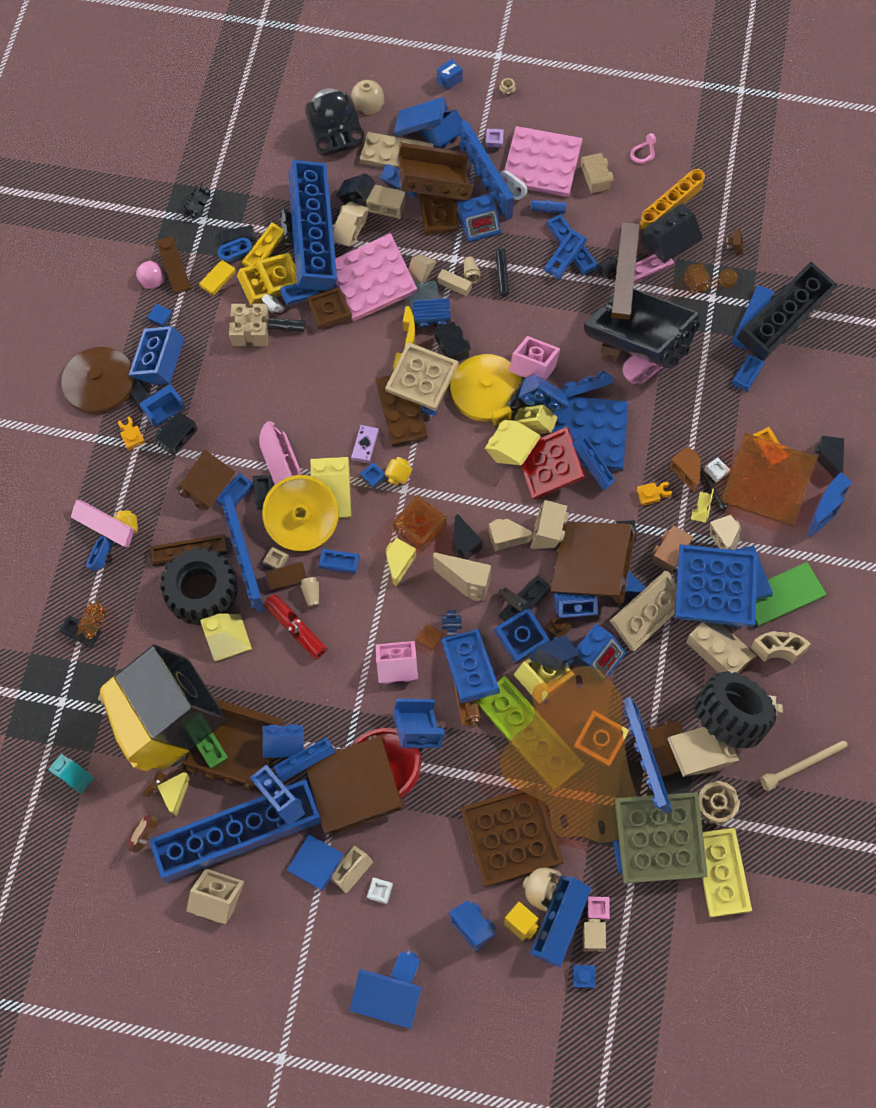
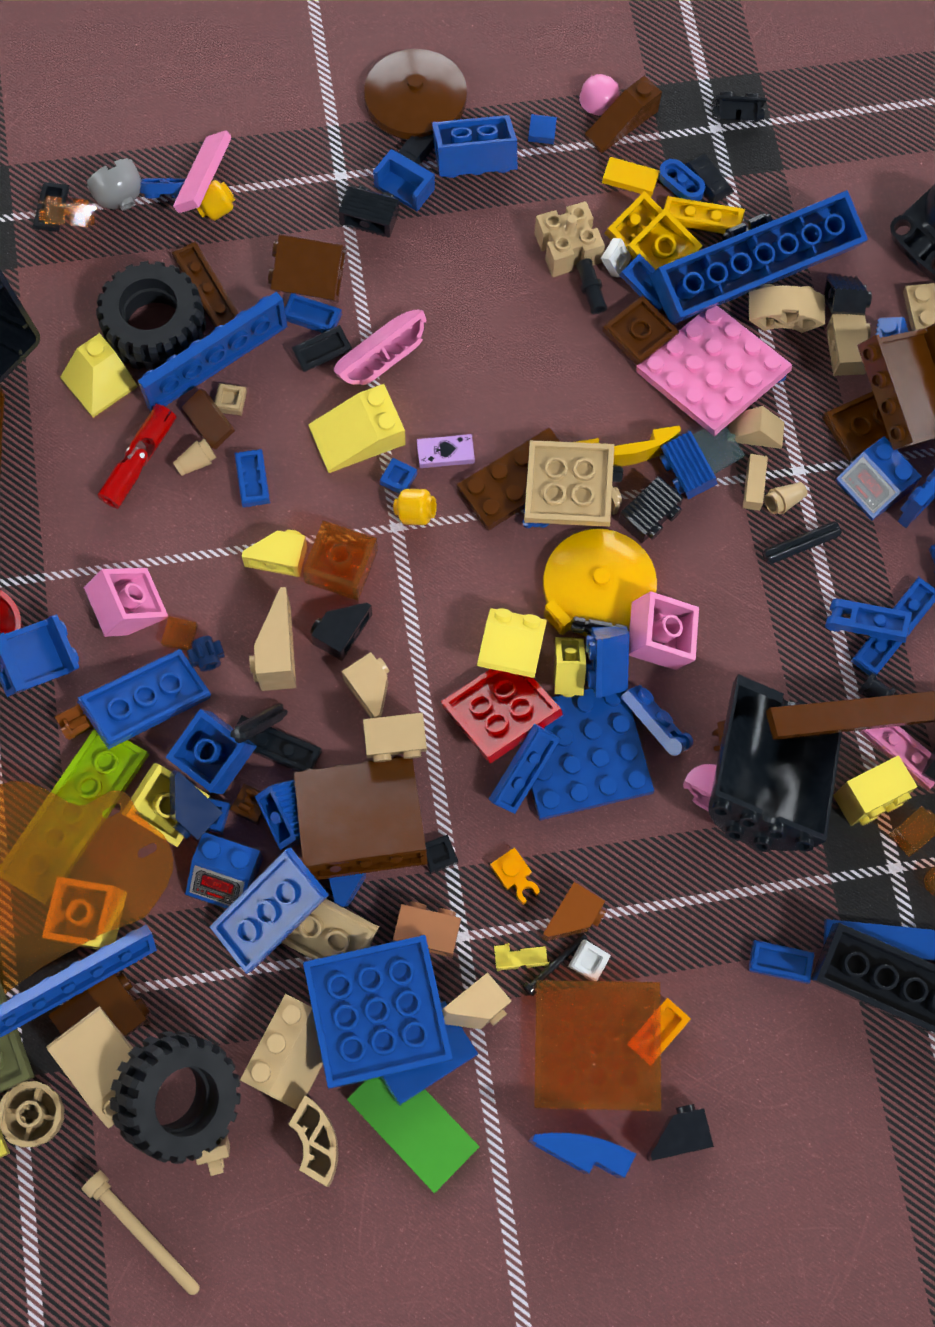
camera: 65 degrees right, 5 degrees up
(88, 581) = (116, 186): none -> light grey cylinder
(131, 435) = (351, 163): light orange plate -> none
(300, 513) = (301, 402): yellow dish -> none
(635, 629) = (269, 910): none -> tile
(670, 283) = (874, 791): none -> light yellow brick

